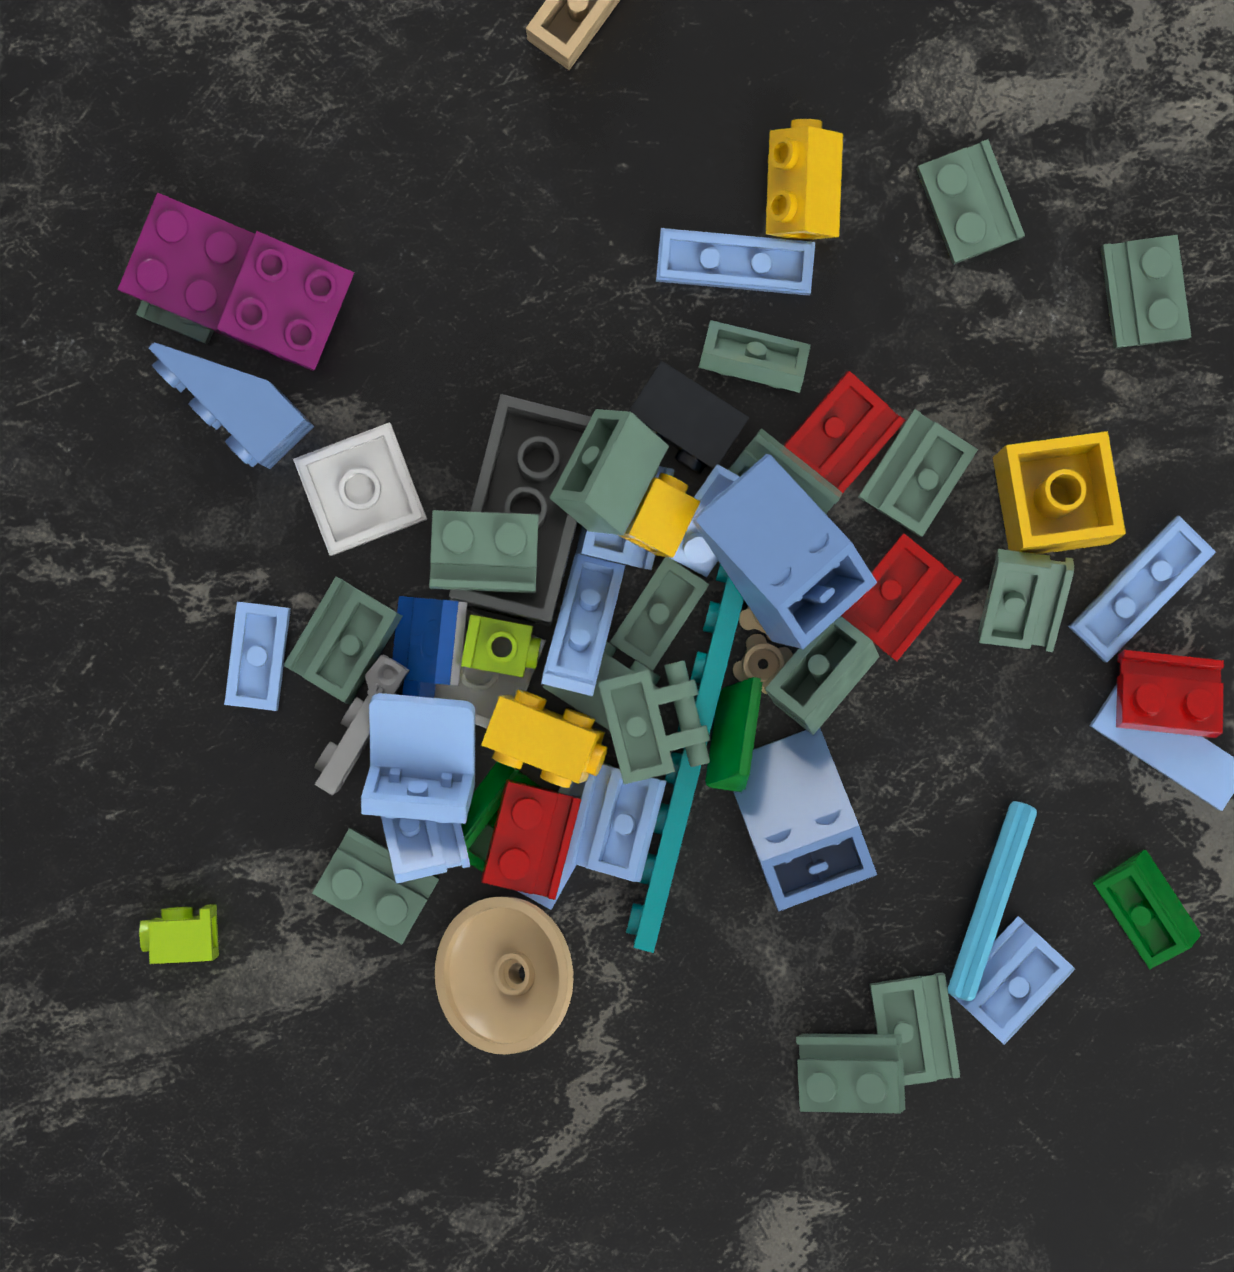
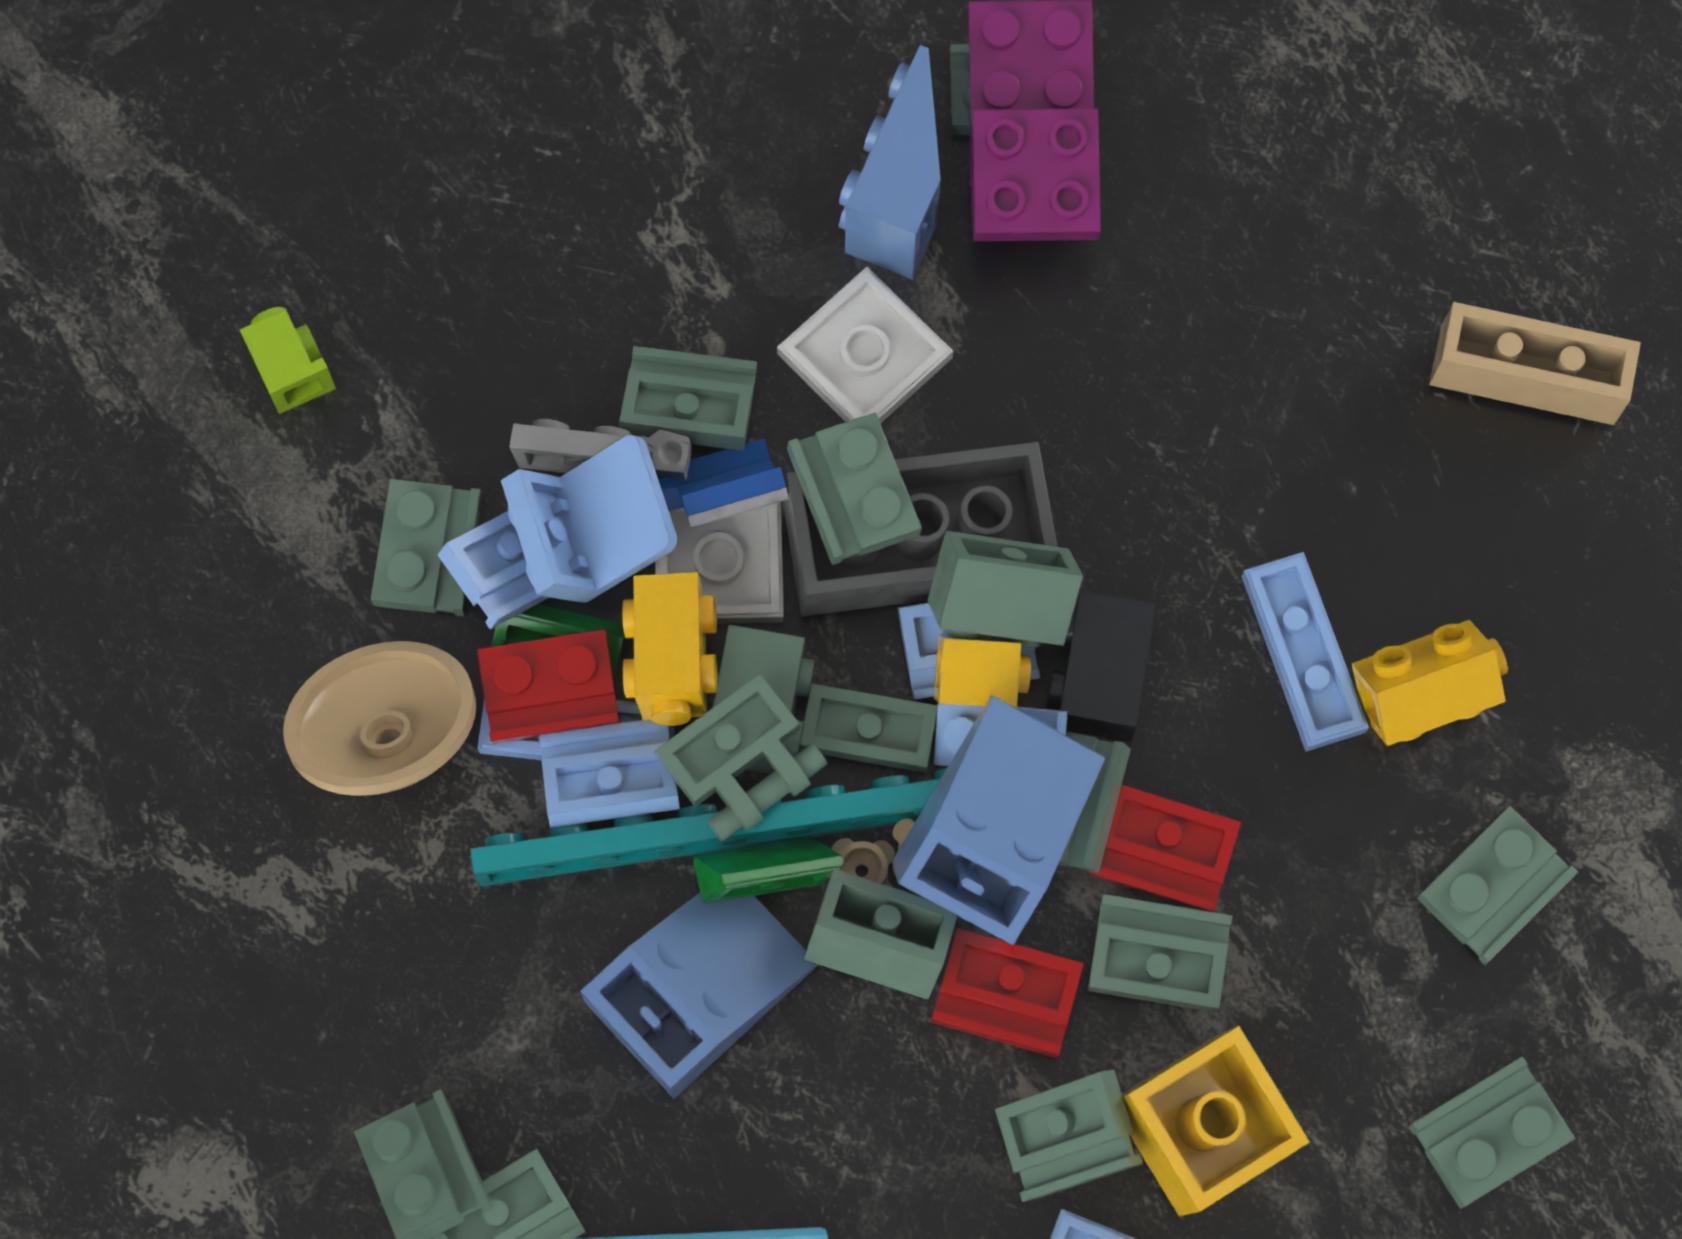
camera: 70 degrees right, 15 degrees down
(257, 656) = (632, 315): light blue plate -> none
(479, 641) = (746, 535): lime brick -> none
(583, 624) = (818, 639): light blue tile -> none
(755, 356) = (1208, 712): sand green plate -> none

